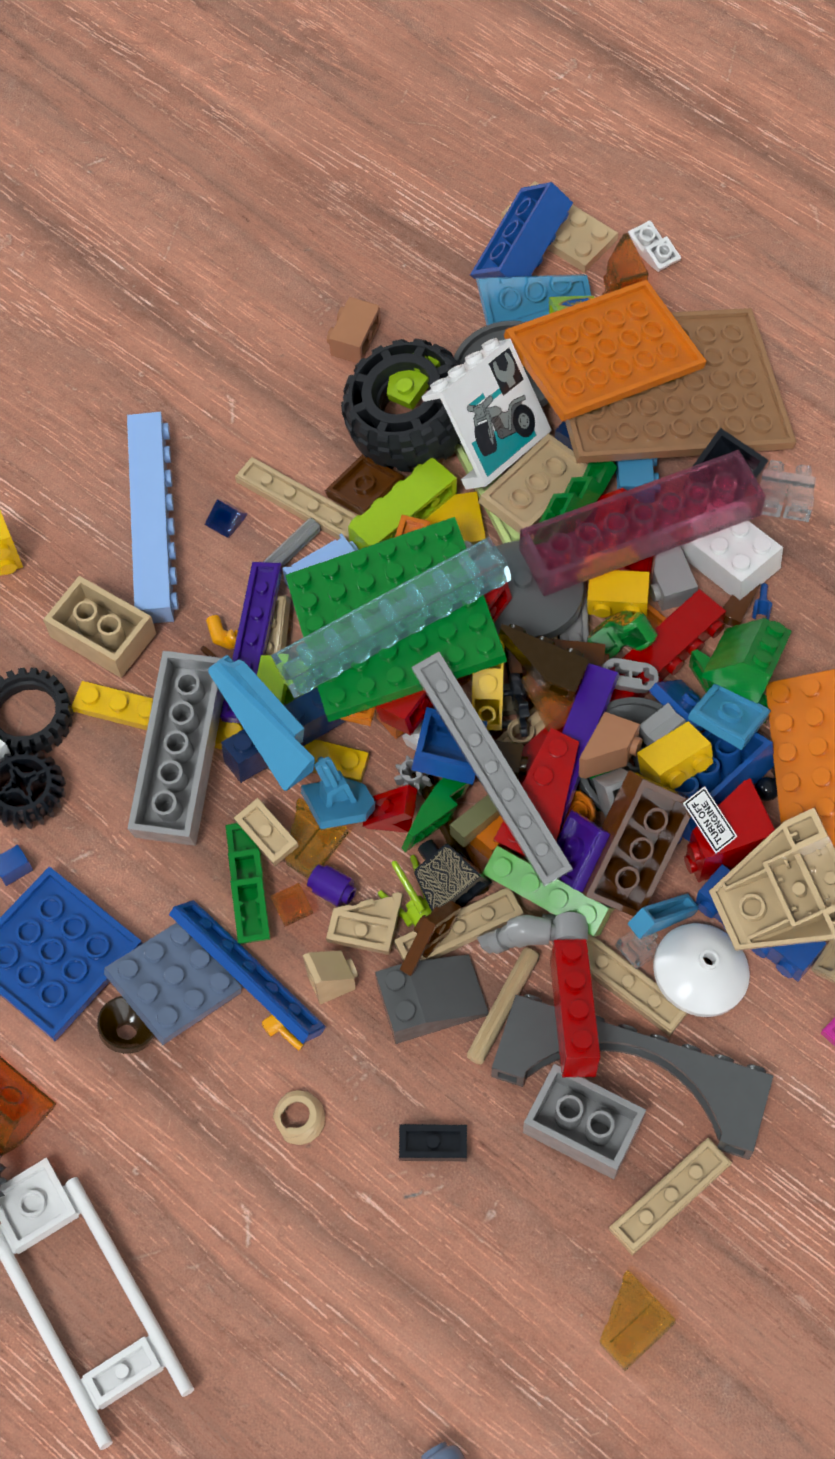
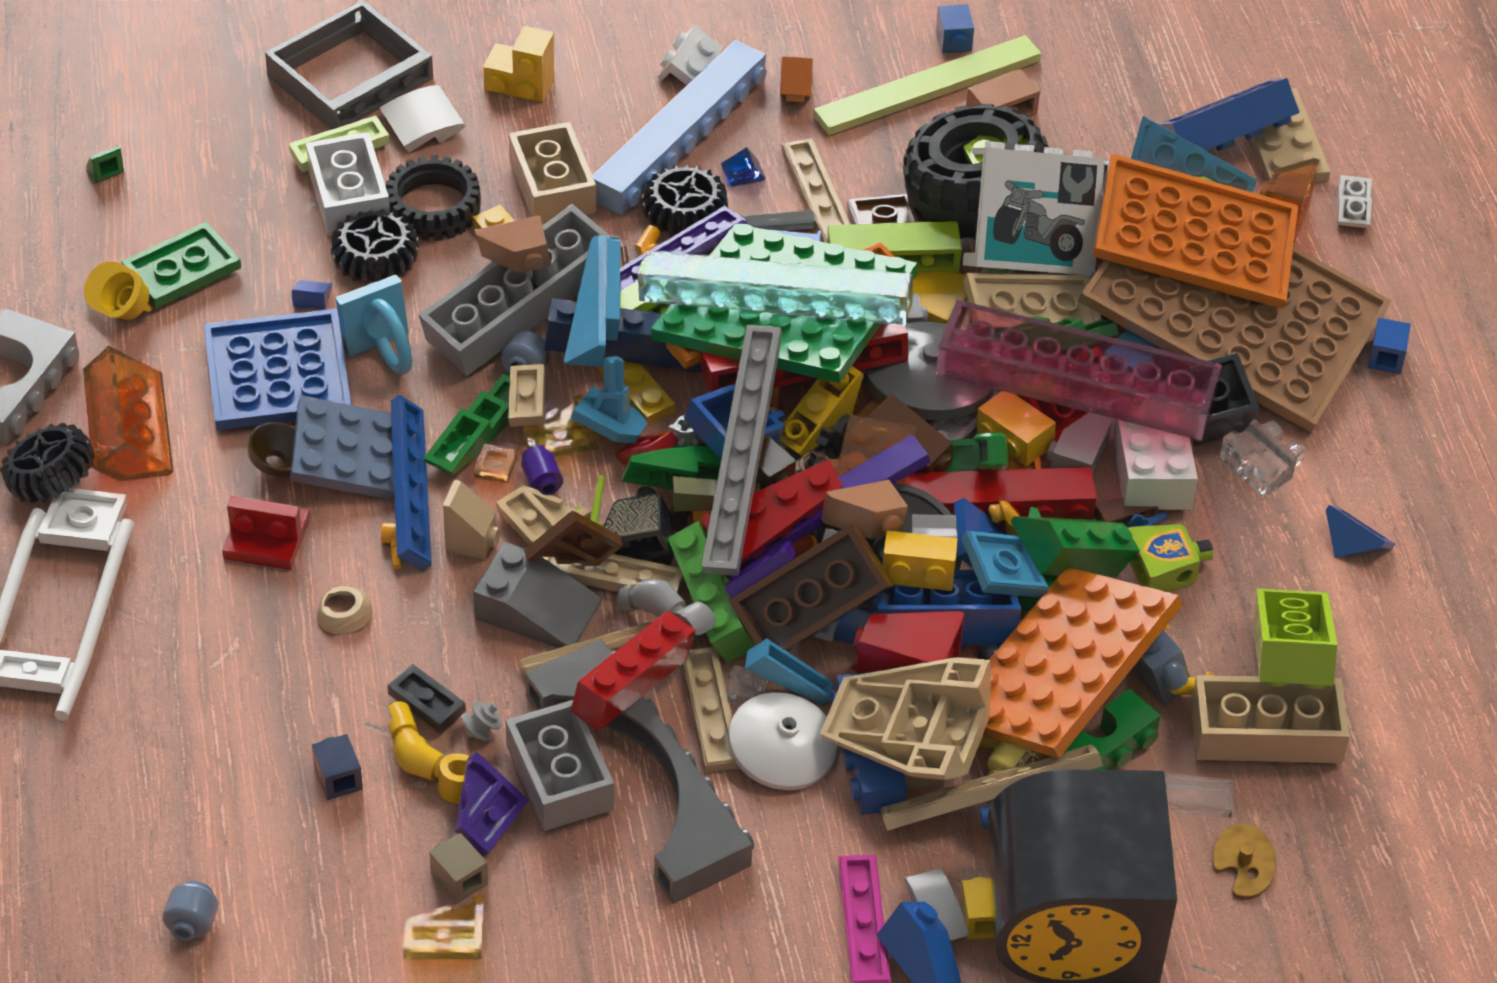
camera: 35 degrees right, 15 degrees down
(91, 856) = (375, 317): none -> medium azure tile
(100, 451) = (691, 55): none -> white bracket
(159, 718) = (515, 244): none -> nougat slope
(179, 1100) = (264, 532): none -> red bracket
(195, 414) = (796, 78): none -> orange slope
(198, 585) = (682, 197): none -> black gear
(226, 796) = (524, 349): none -> sand blue head
(266, 293) = (955, 28): none -> brick
(286, 355) = (926, 85): none -> yellowish green tile
(427, 1255) = (337, 766): none -> dark blue brick
(477, 1198) = (421, 759): none -> yellow piece
(491, 1129) = (482, 721): none -> light grey wheel
(550, 666) = (877, 414): dark brown slope -> none
(564, 1197) = (486, 804): none -> dark purple wing
(591, 1264) = (458, 867): none -> dark tan brick
(632, 668) = (953, 473): light grey beam -> none
(670, 1196) = (577, 876): tan tile -> none
(682, 671) = (1005, 512): none -> light orange arm
(710, 819) = (889, 609): white sticker -> none
(782, 344) = (1389, 345): none -> blue brick
(806, 617) = (1167, 556): none -> lime torso

